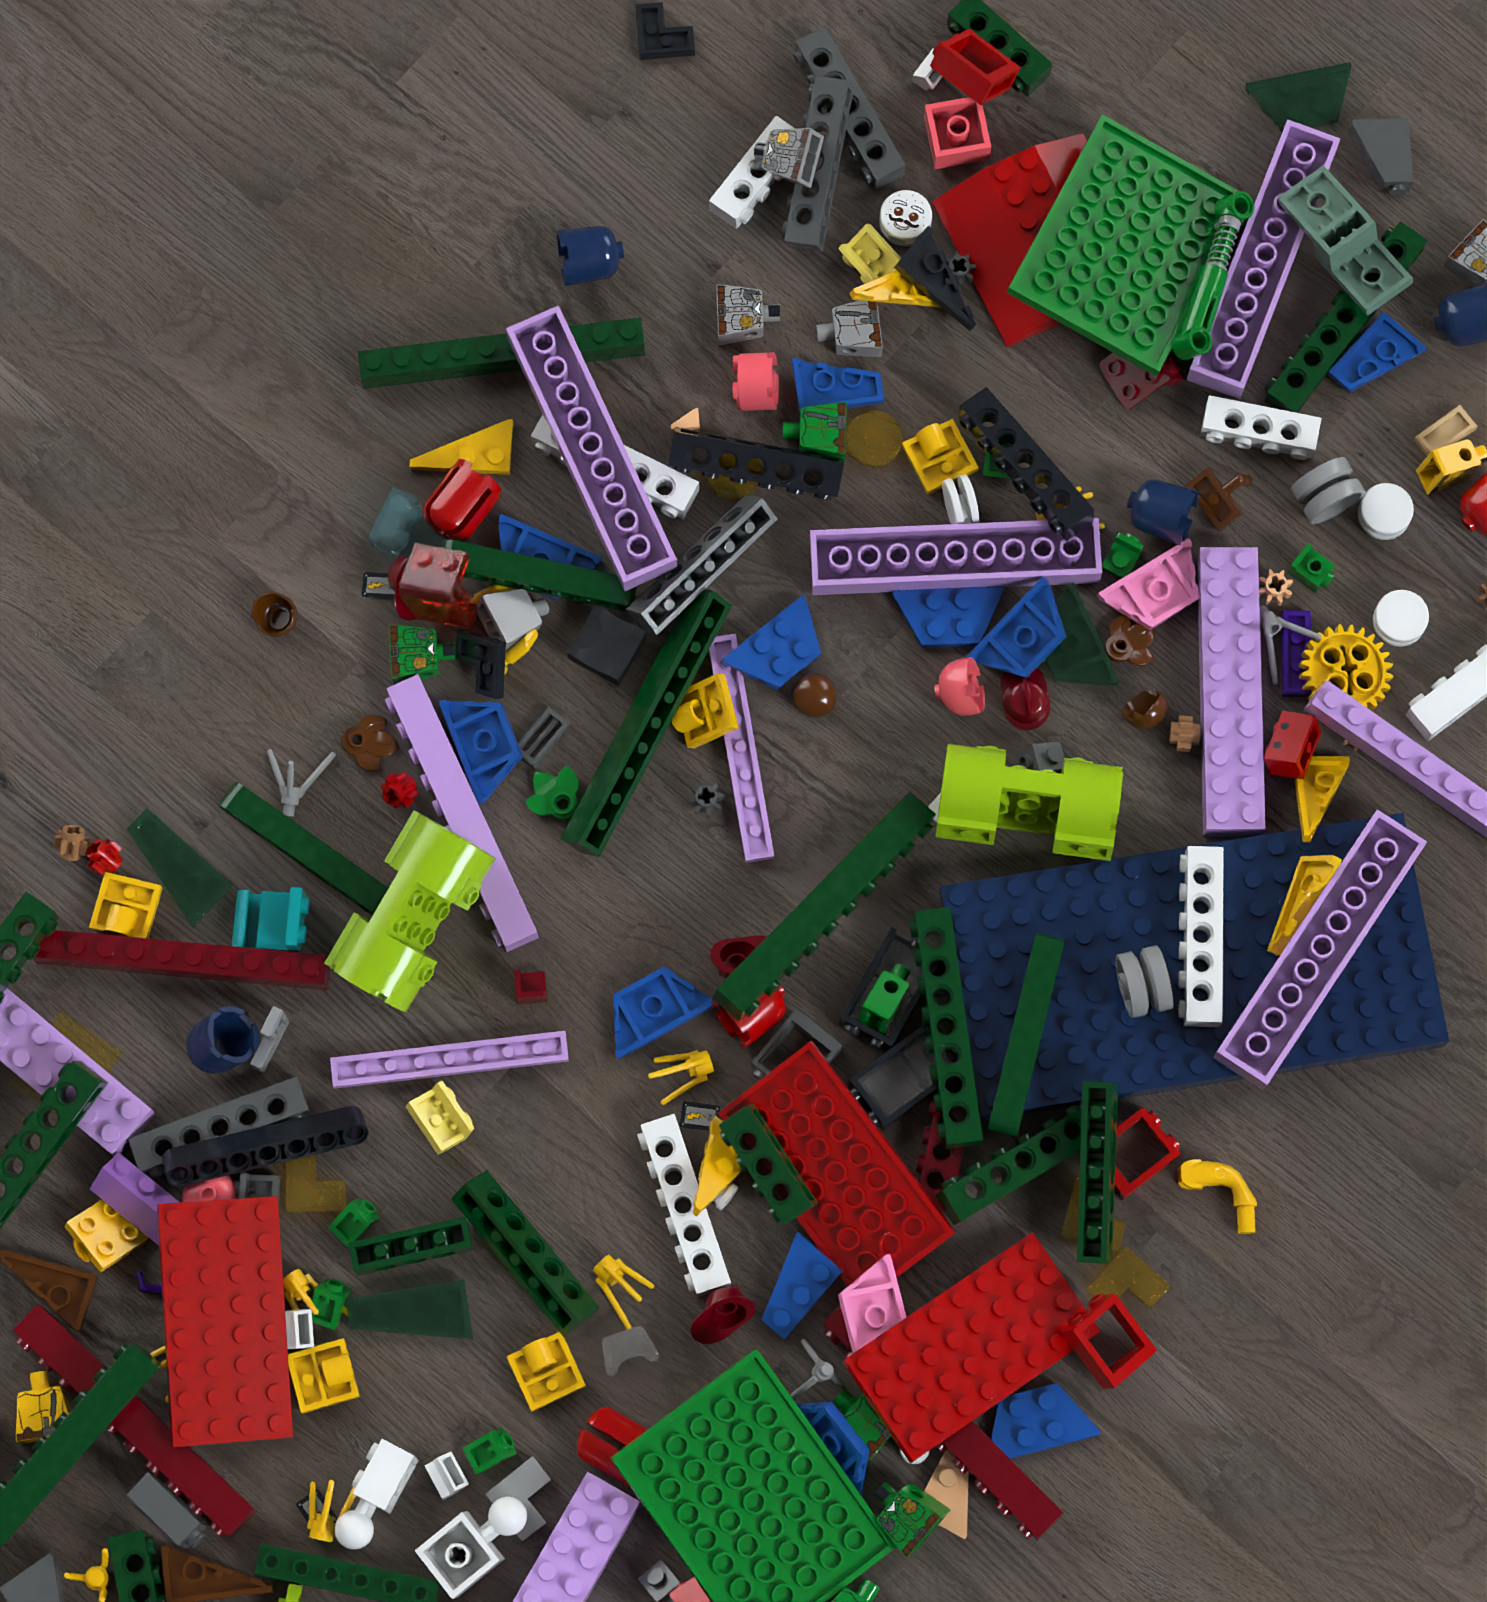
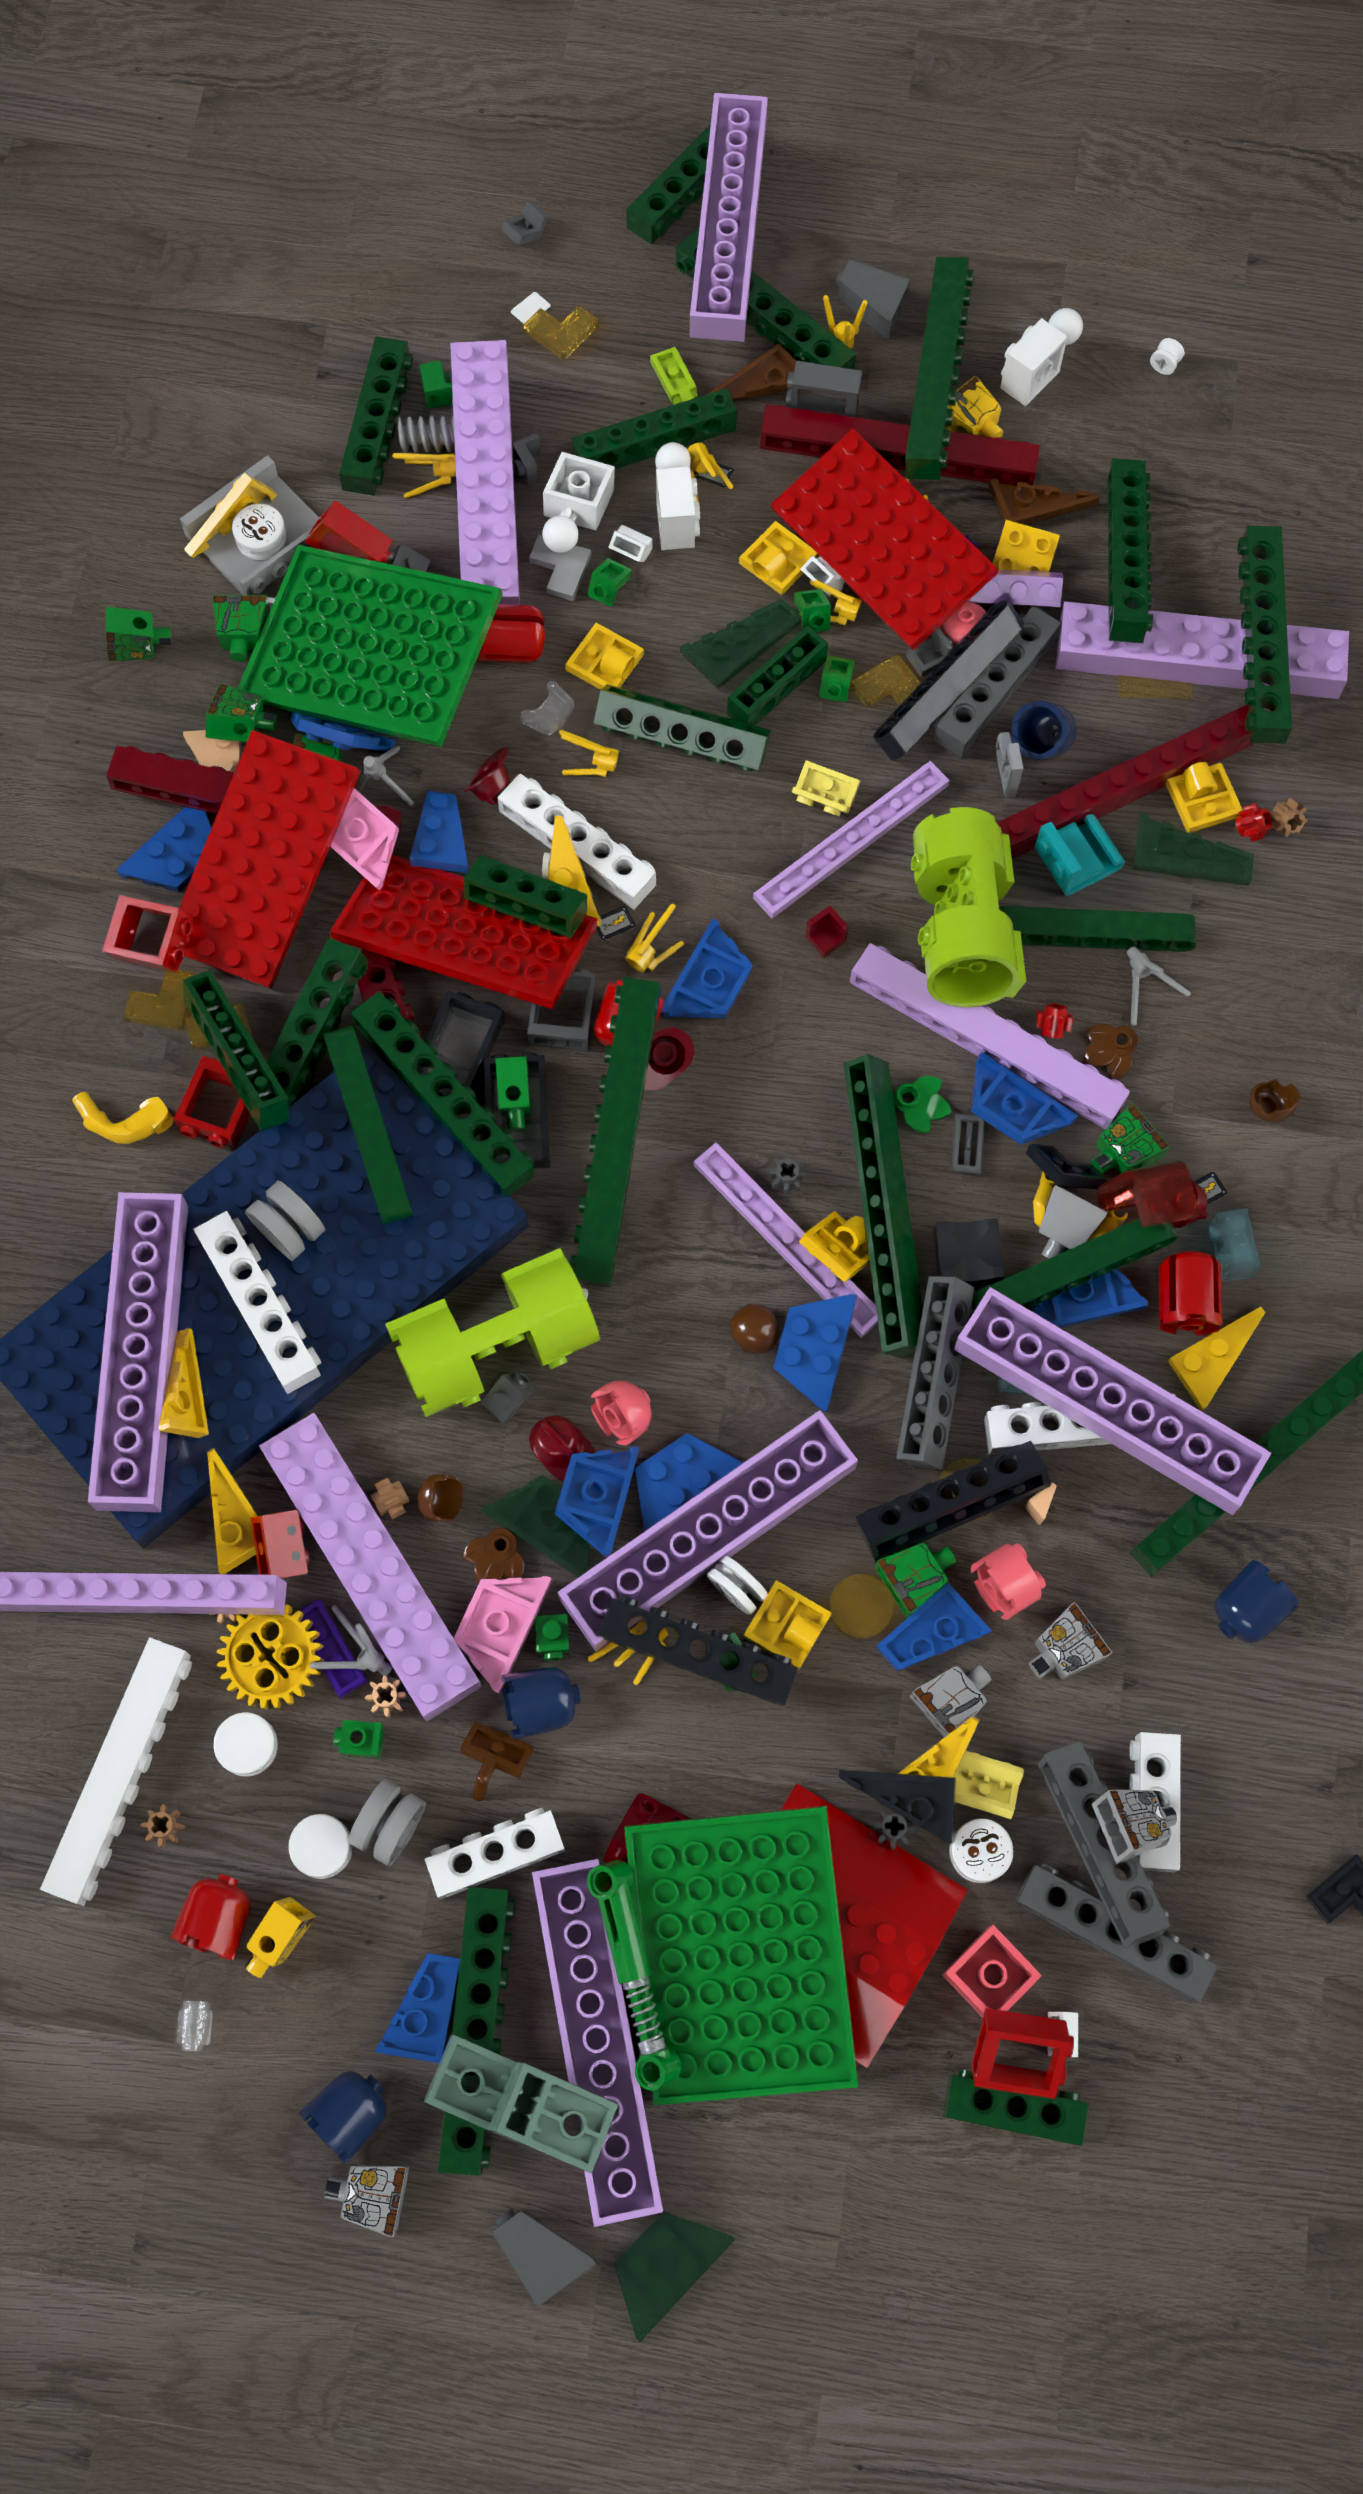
camera: 145 degrees right, 5 degrees down
(1446, 431) = (306, 1974): tan tile -> none

